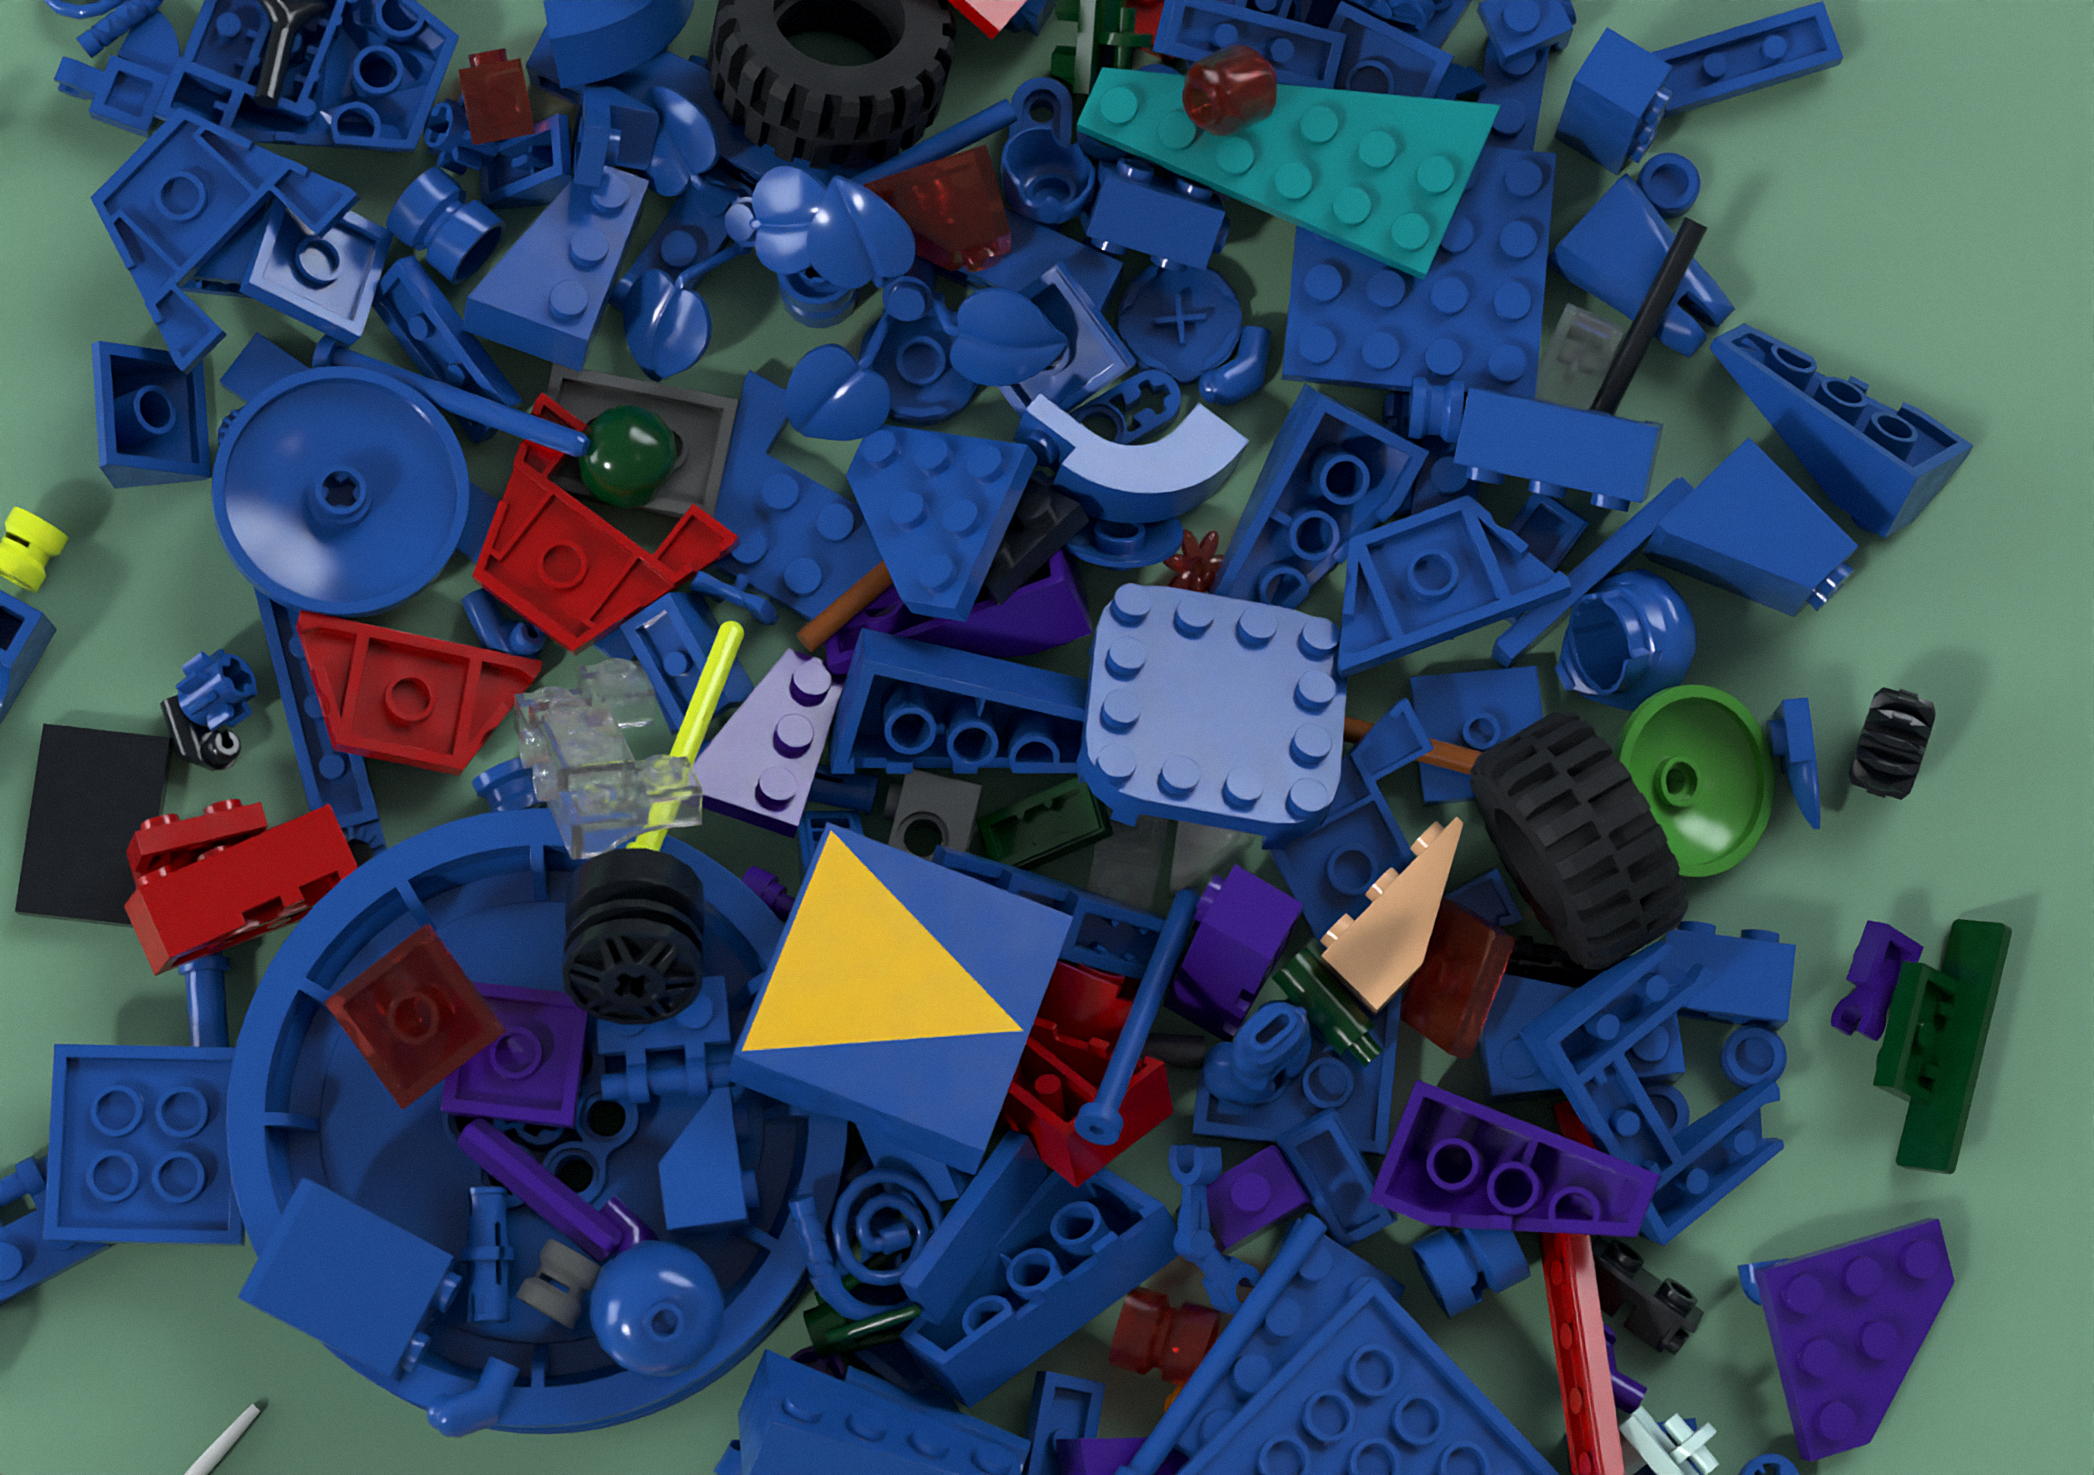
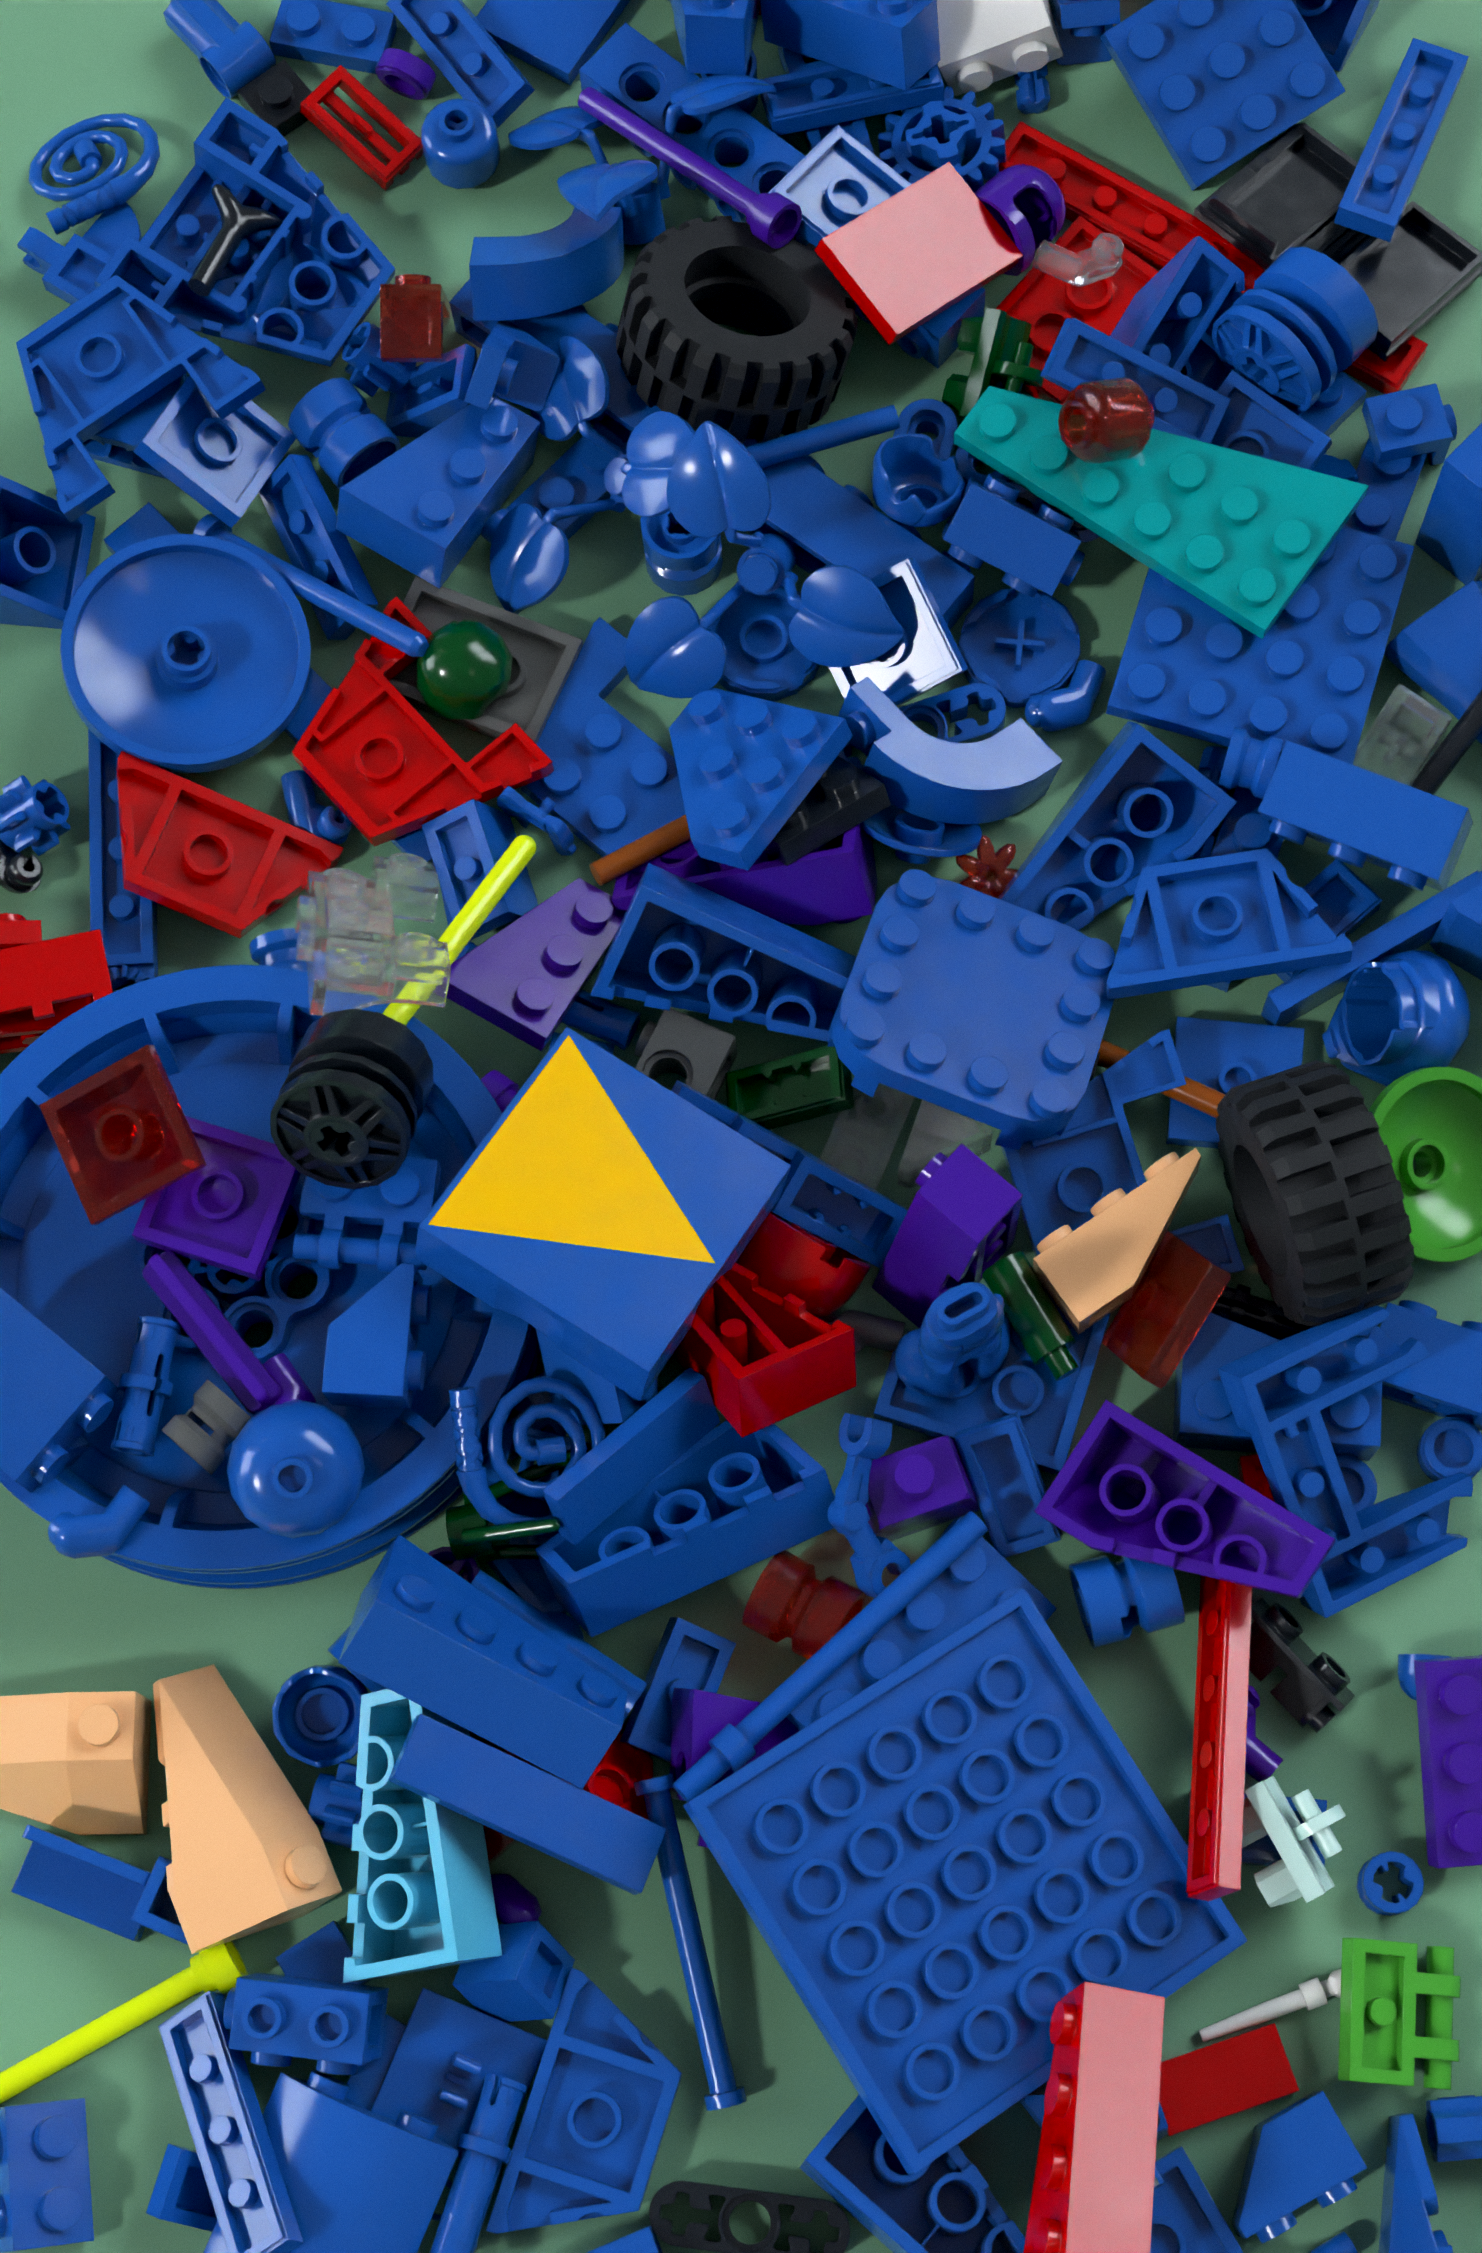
camera: 20 degrees right, 5 degrees down
(951, 210) = (815, 487): clear red slope -> none
(1100, 1119) = (775, 1367): blue bar -> none

